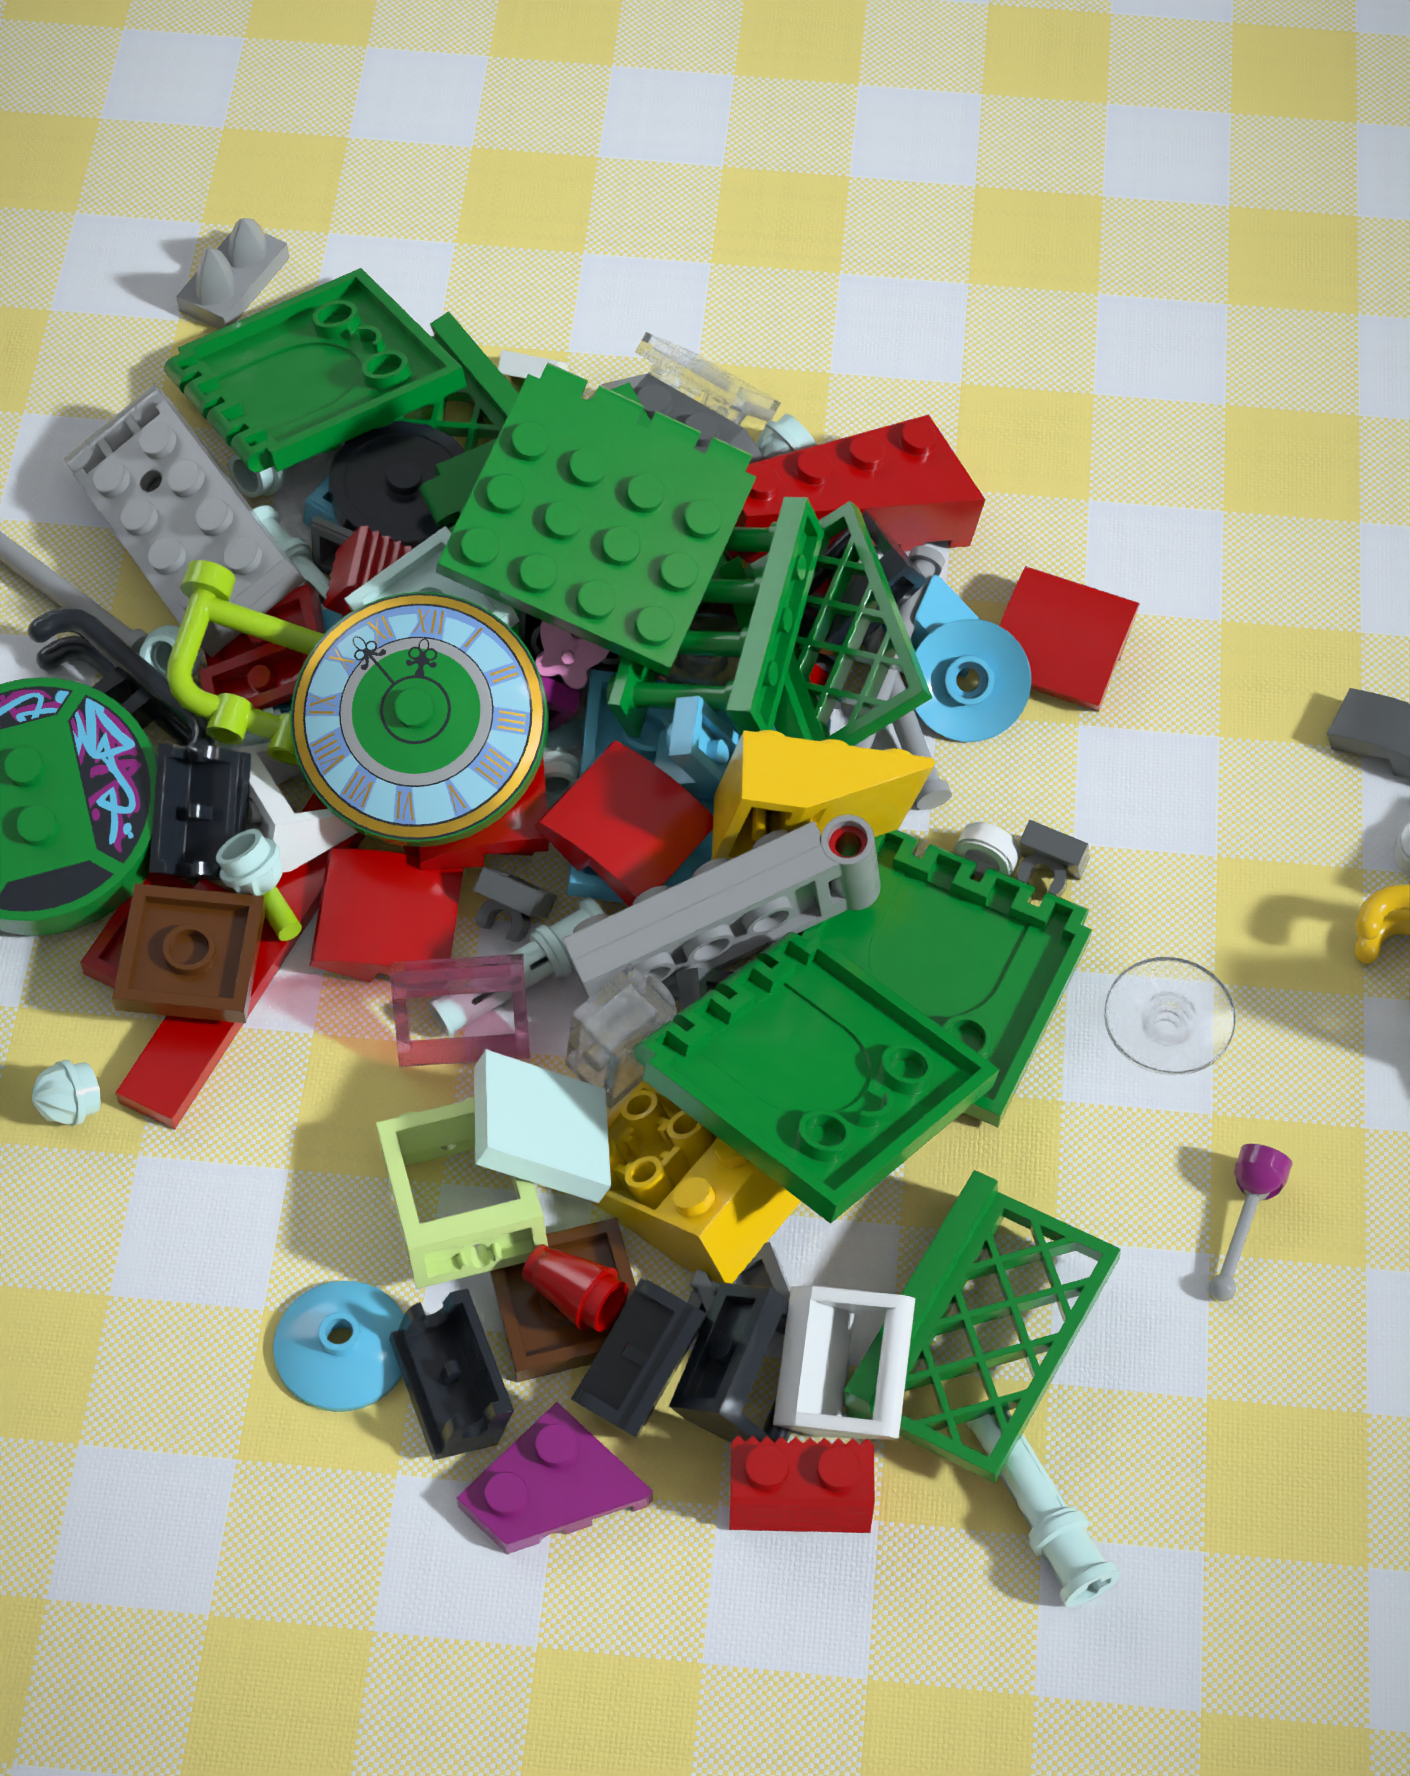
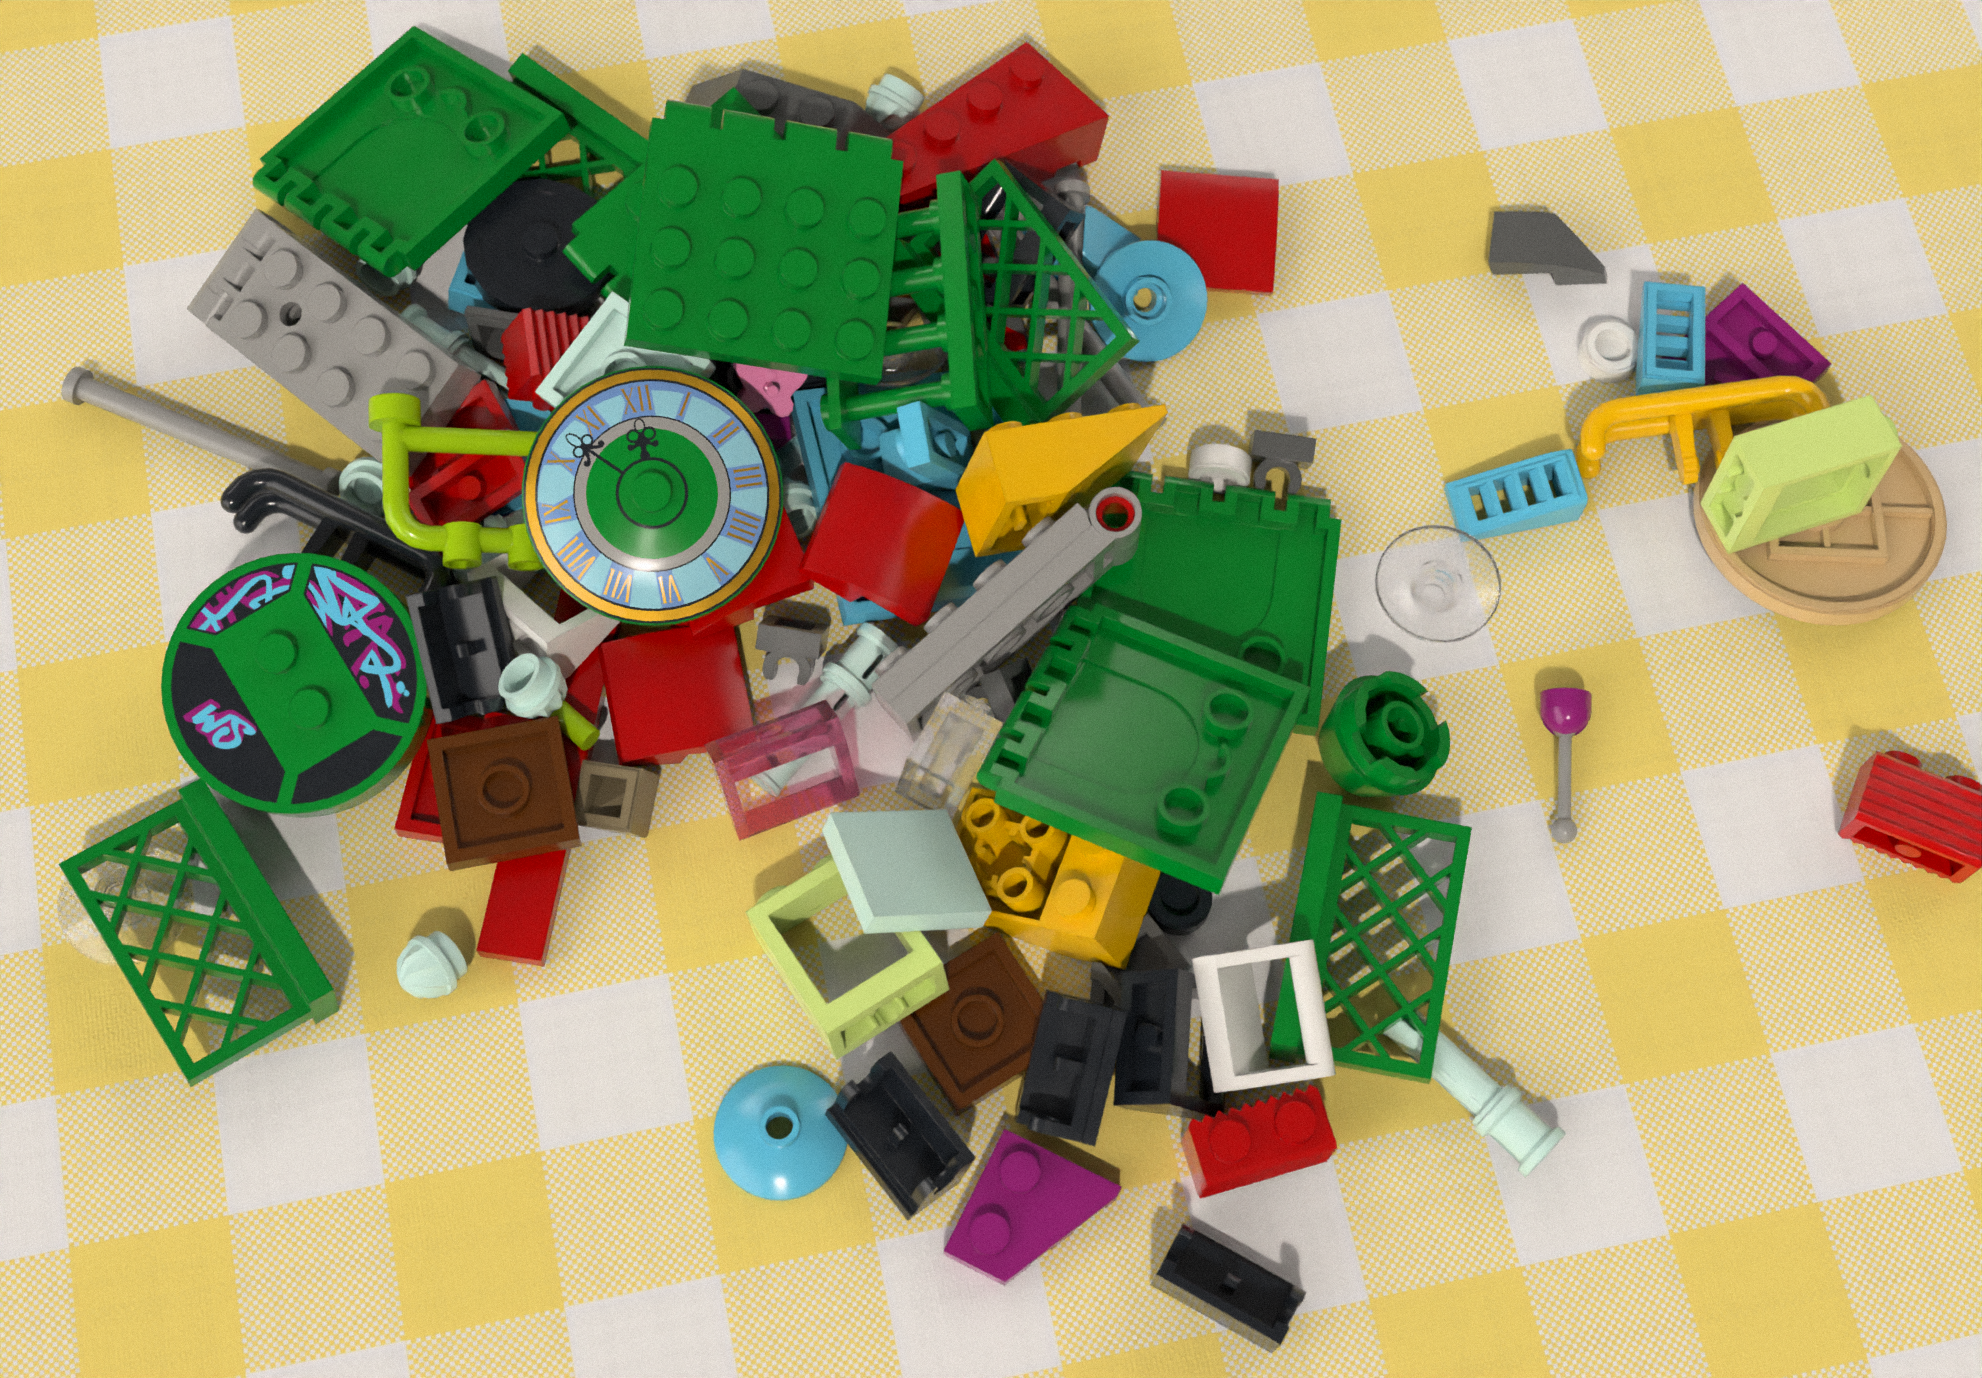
camera: 20 degrees left, 10 degrees up
(232, 275) = (285, 66): light grey tile -> none
(296, 993) = (615, 798): none -> dark tan slope
(521, 364) = (621, 88): white tile -> none
(577, 1287) = (989, 1015): red cone -> none
(696, 374) = (819, 66): clear hinge -> none
(723, 1619) = (1228, 1288): none -> black hinge
(807, 1244) = (1179, 905): none -> black tile
(1059, 1138) = (1383, 737): none -> green cone
(1304, 939) = (1535, 471): none -> medium azure slope

